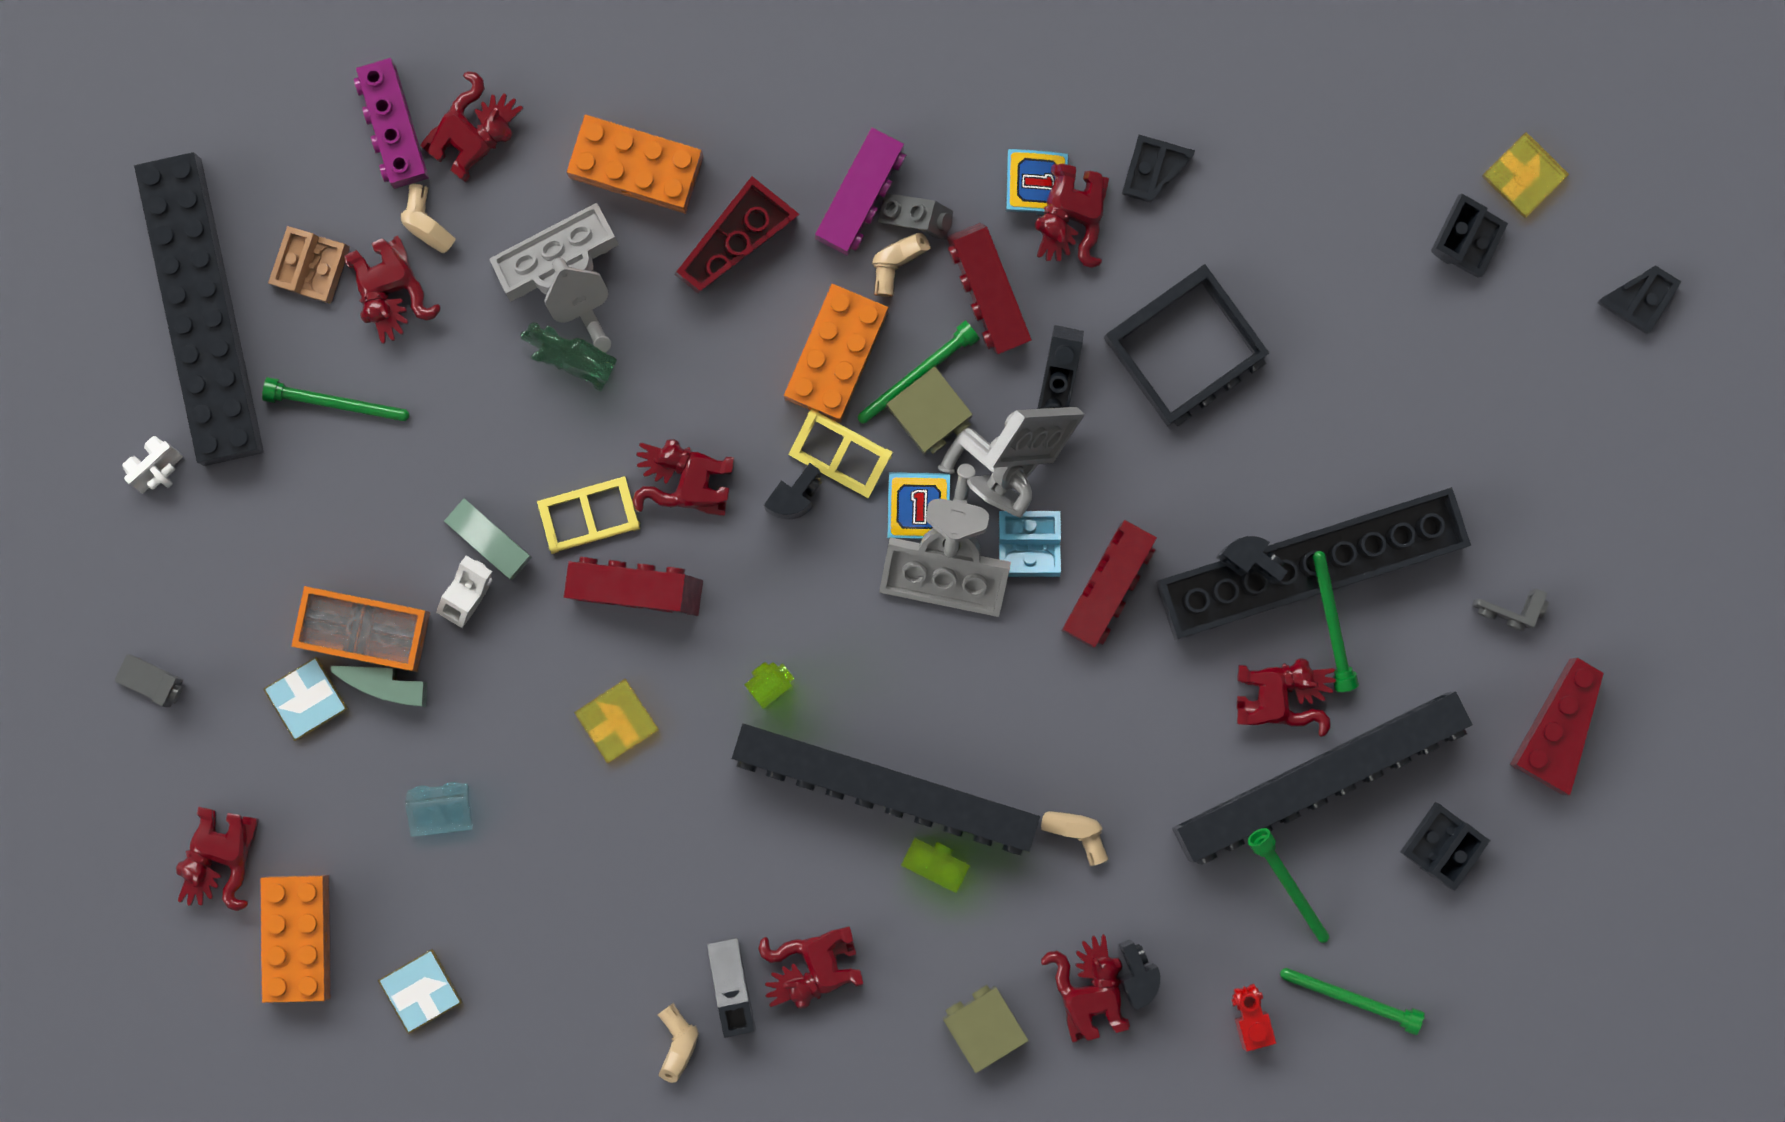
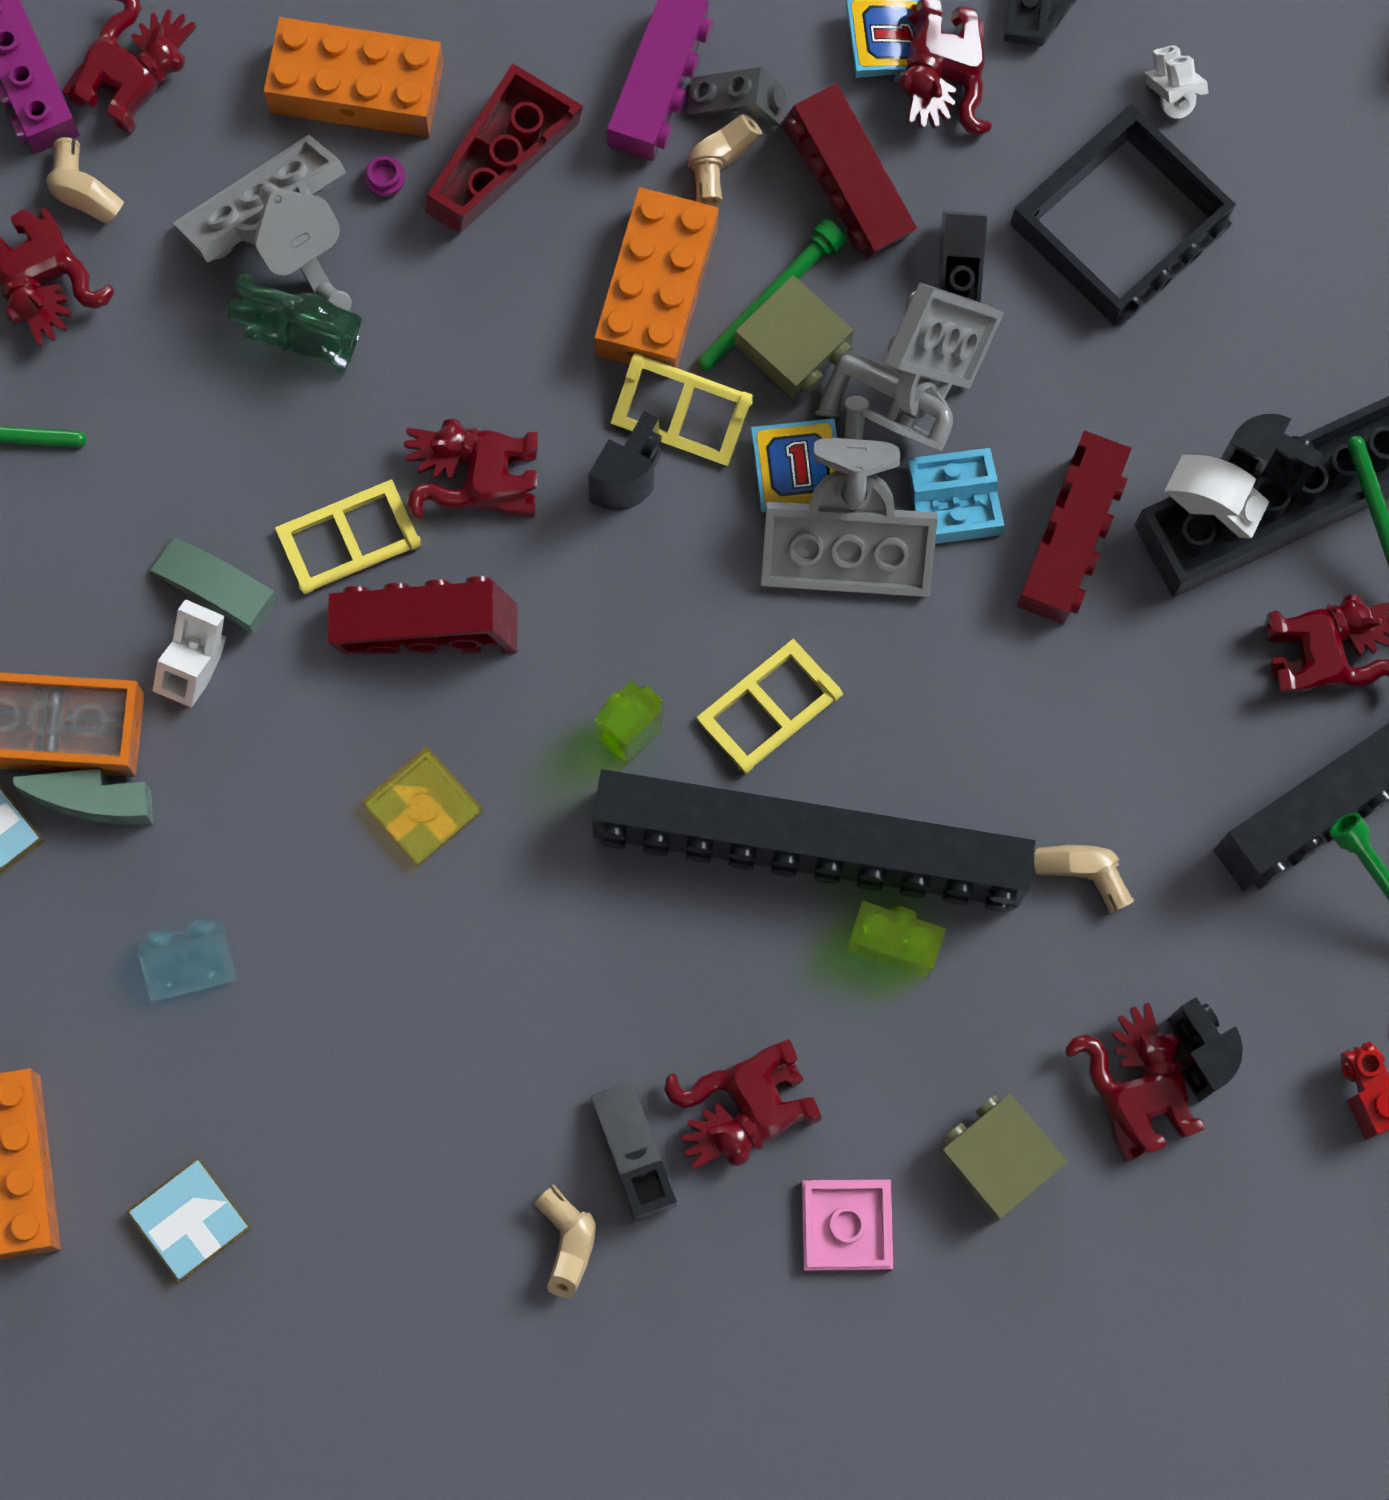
camera: 10 degrees left, 10 degrees down
(648, 242) = (384, 176): none -> magenta plate
(871, 1057) = (847, 1225): none -> bright pink tile
(918, 678) = (750, 684): none -> light yellow window
(1212, 580) = (1218, 489): none -> white brick
(1242, 247) = (1175, 81): none -> white hips

